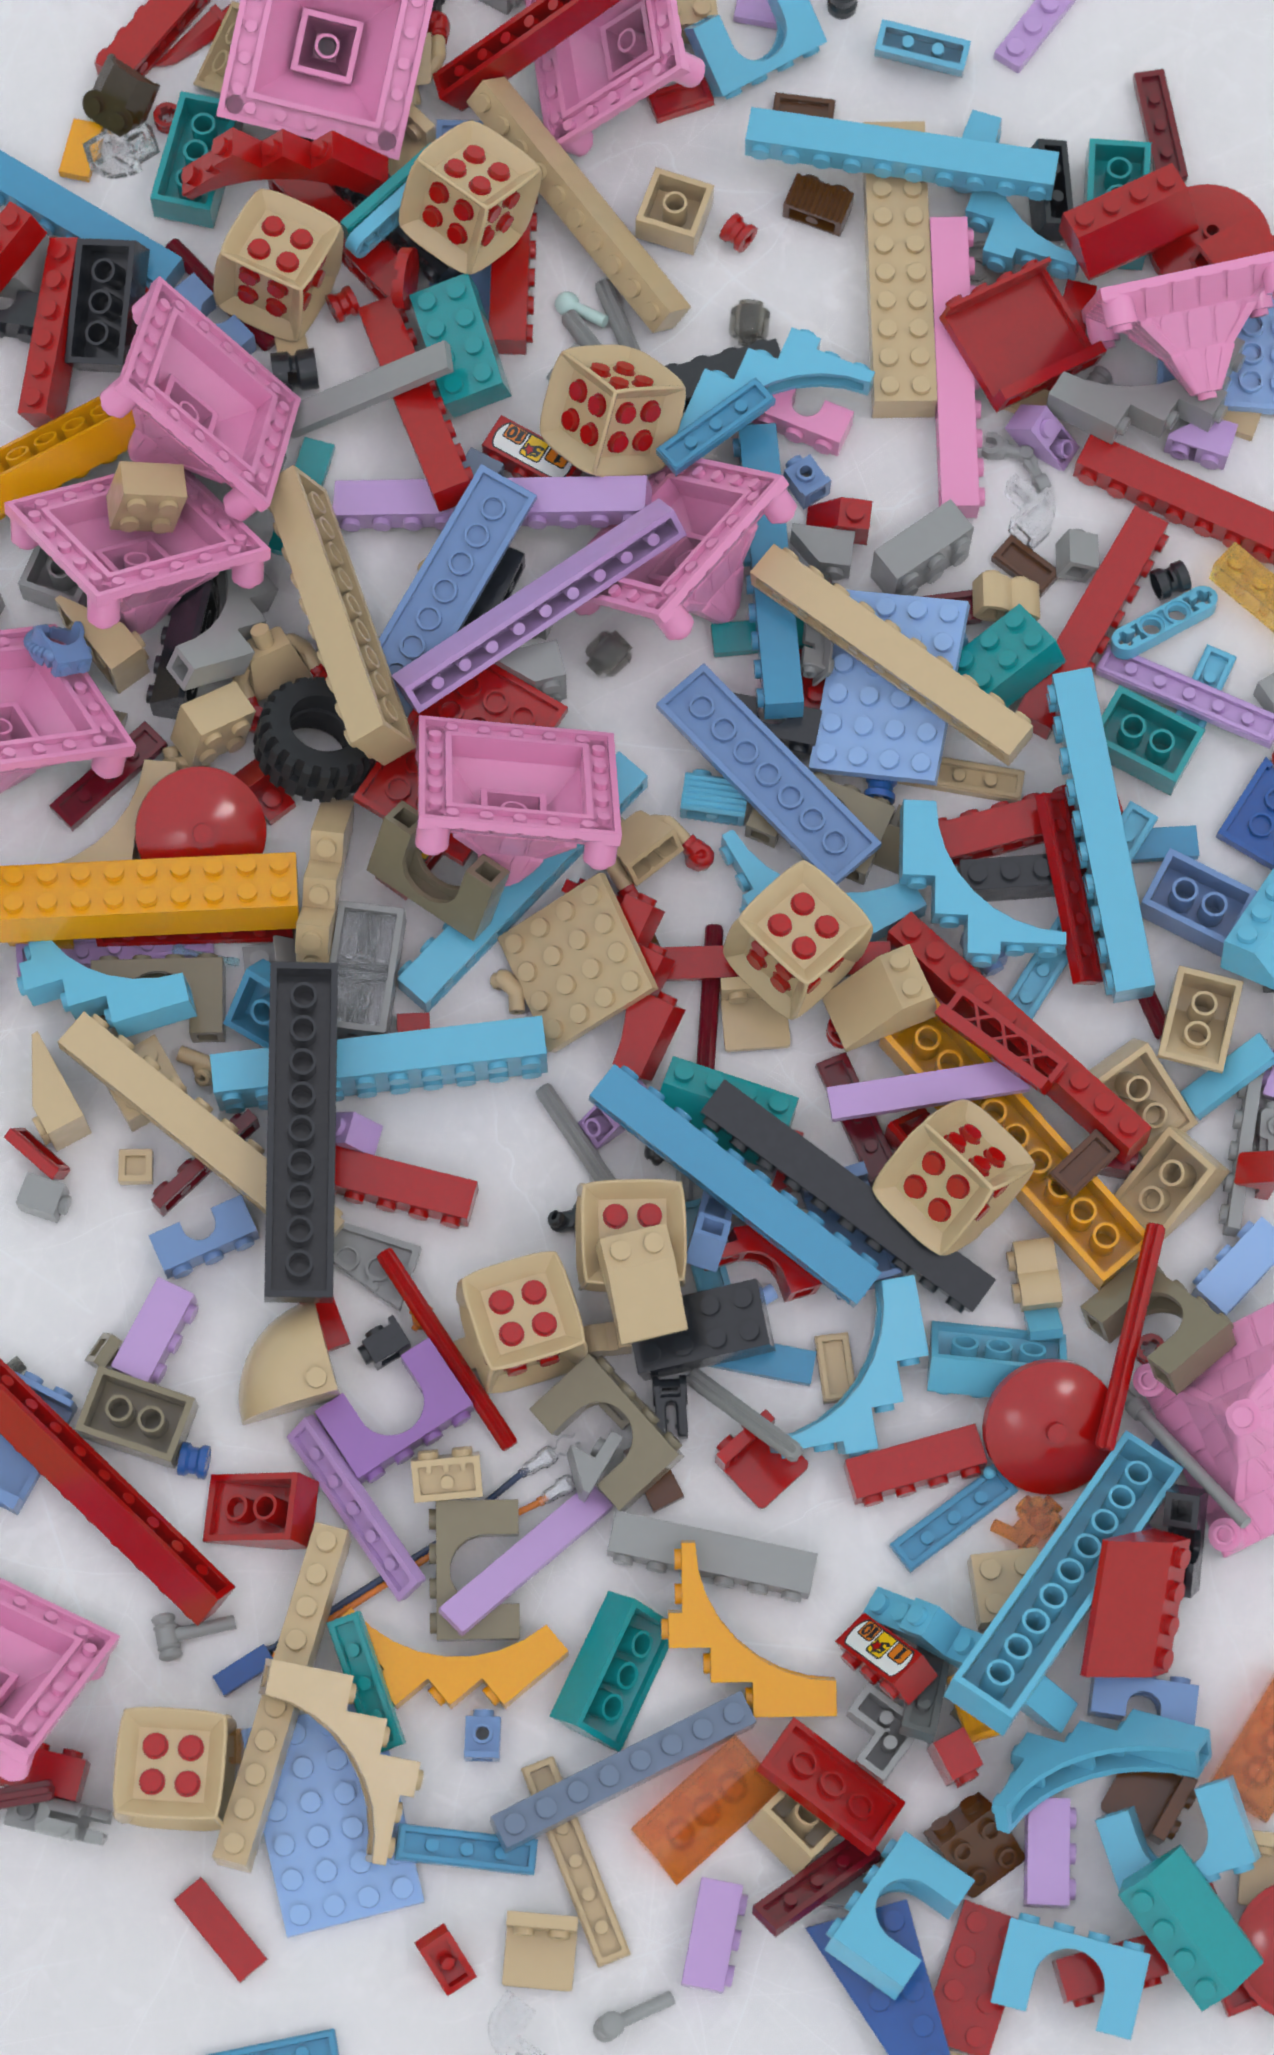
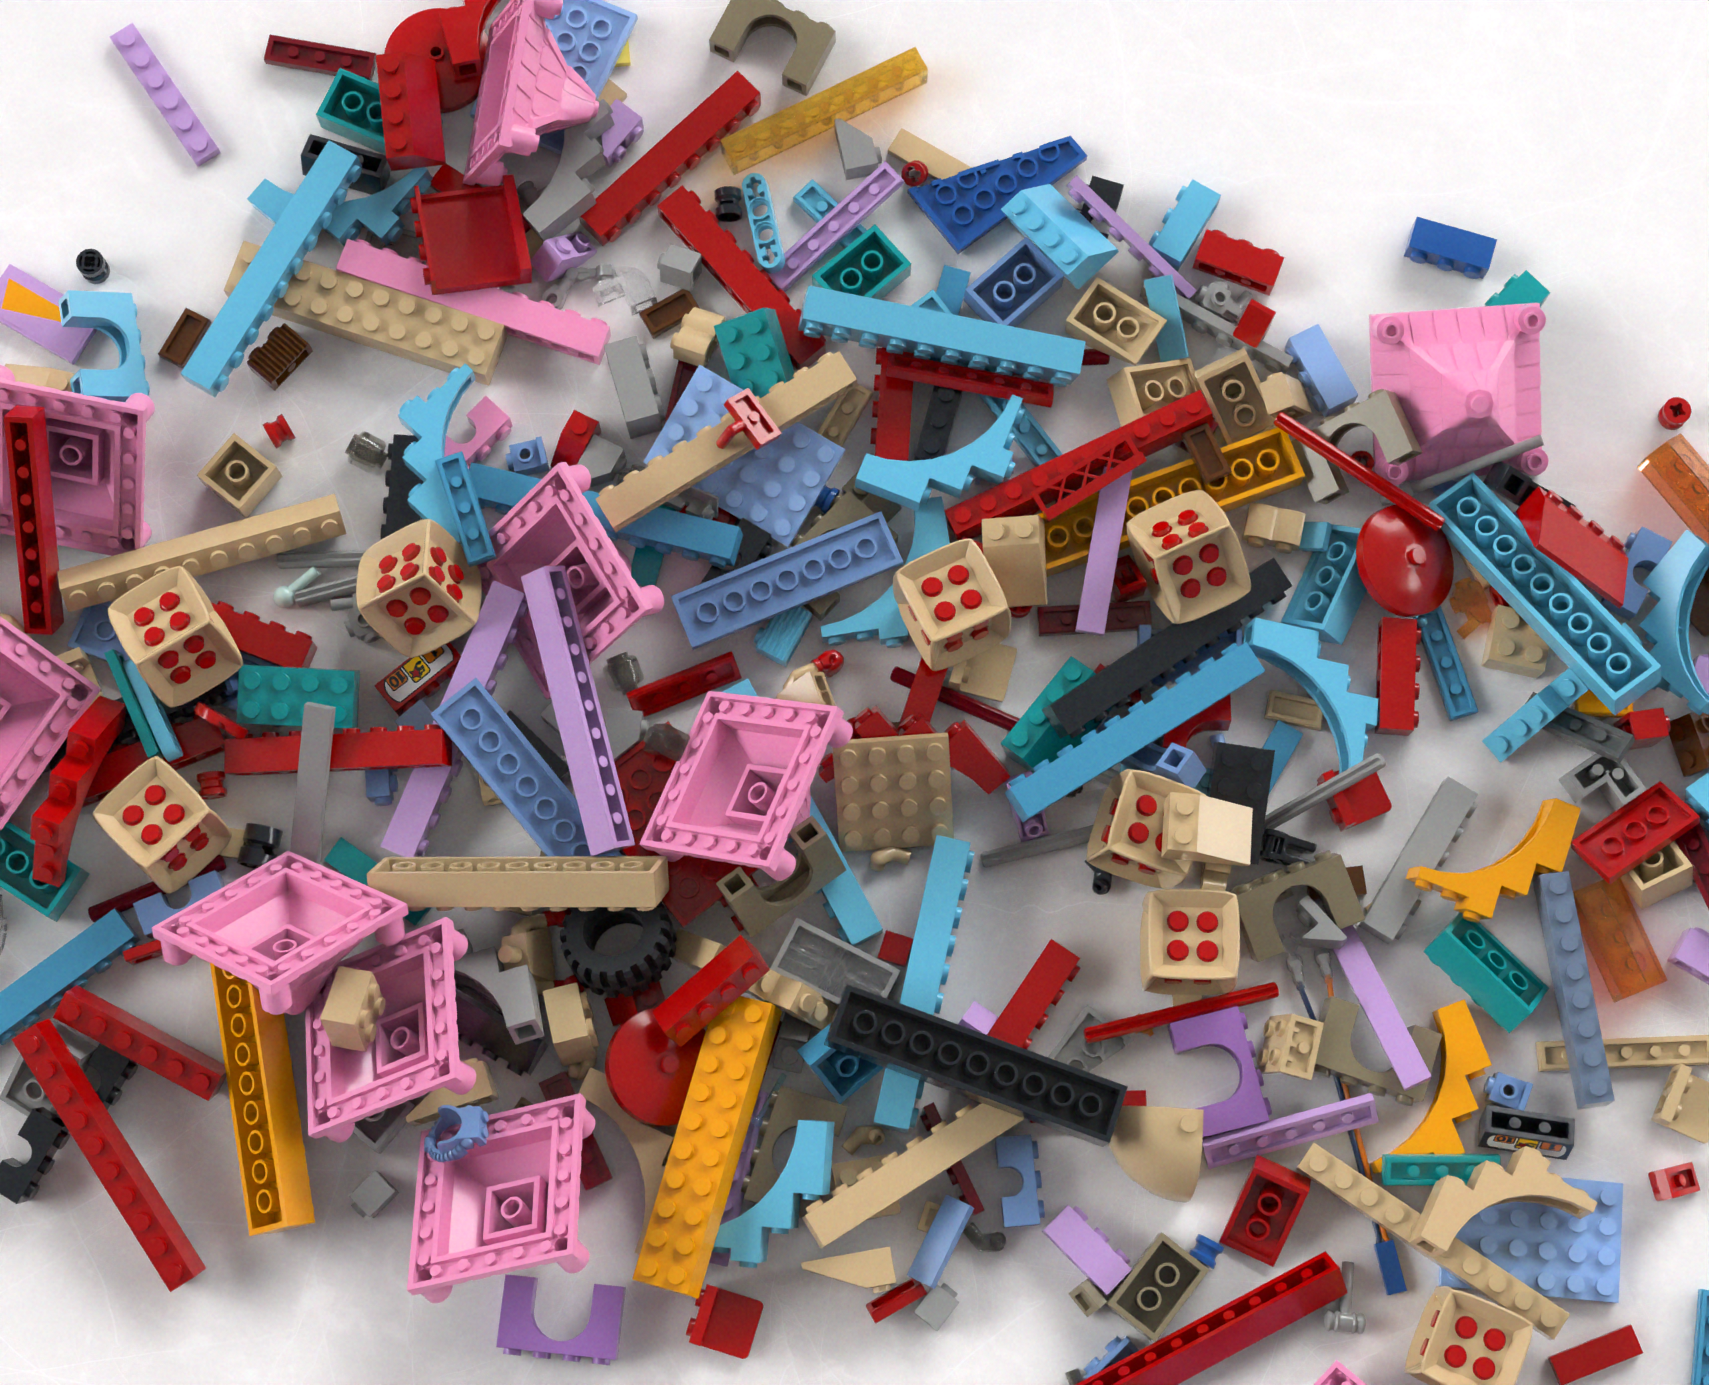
camera: 70 degrees left, 5 degrees up
(104, 288) = (137, 988): black brick -> none
(110, 1173) = (940, 1241): none -> medium blue tile
(129, 1226) = (985, 1241): none -> clear smoke arm
(290, 840) = (710, 990): none -> red brick
(384, 1344) = (1159, 1062): black brick -> none
(400, 461) = (380, 786): none -> medium blue brick
(444, 1769) = (1515, 1129): none -> black brick
(462, 1850) = (1592, 1142): dark azure tile -> none
(540, 707) = (666, 741): none -> clear smoke bracket
(618, 718) = (684, 684): none -> red tile
(885, 1659) = (1552, 753): brick -> none
(917, 659) = (750, 419): none -> plate
(922, 48) = (170, 218): medium azure brick -> none
(1188, 1233) = (1285, 395): none -> tan brick

